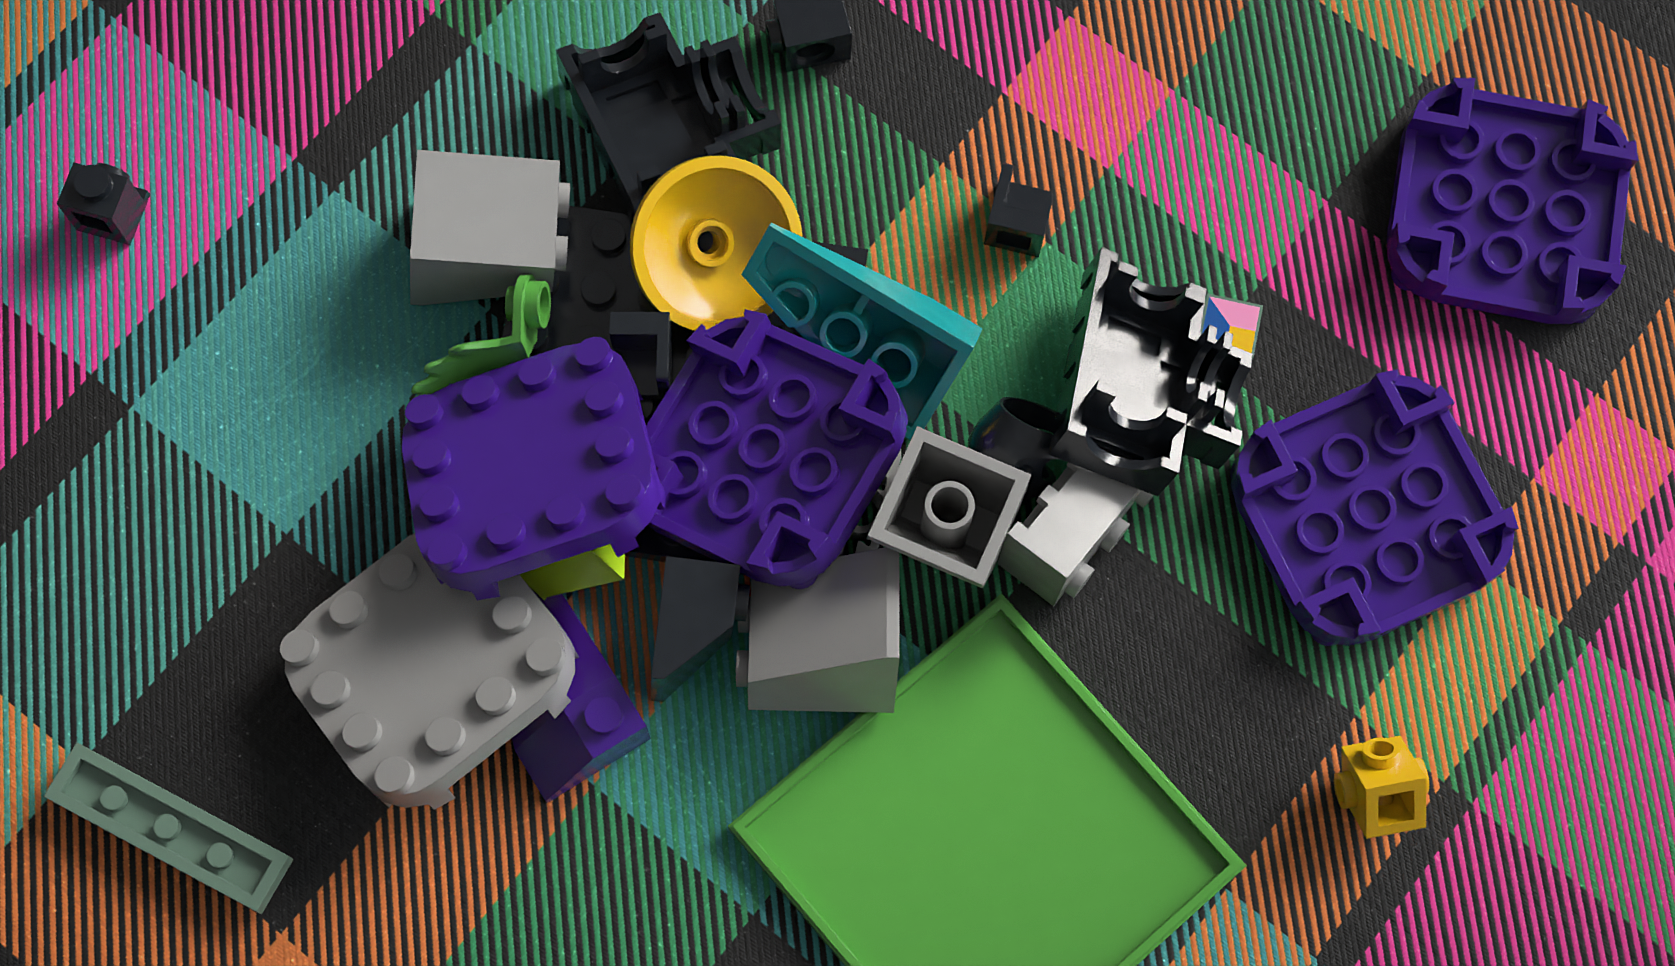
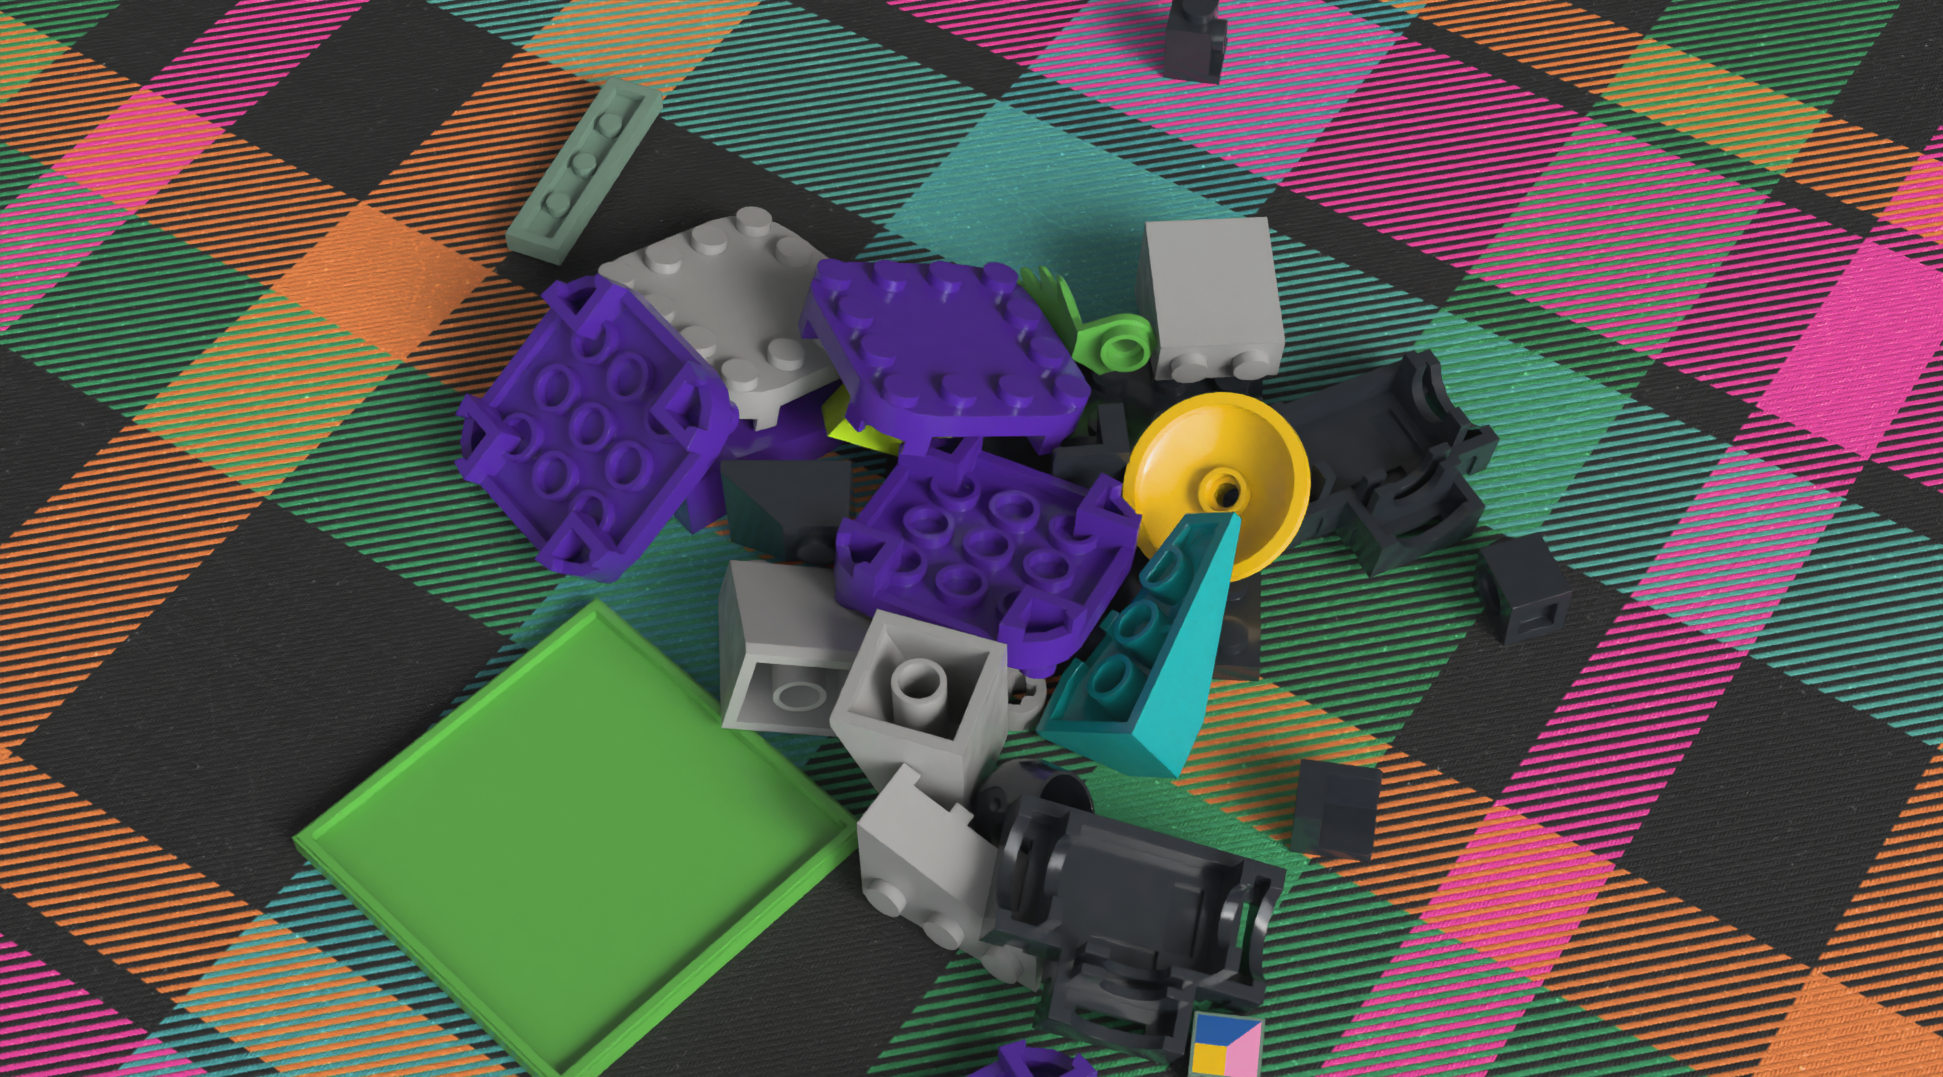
camera: 90 degrees right, 20 degrees down
(567, 807) = (596, 428): none -> dark purple plate

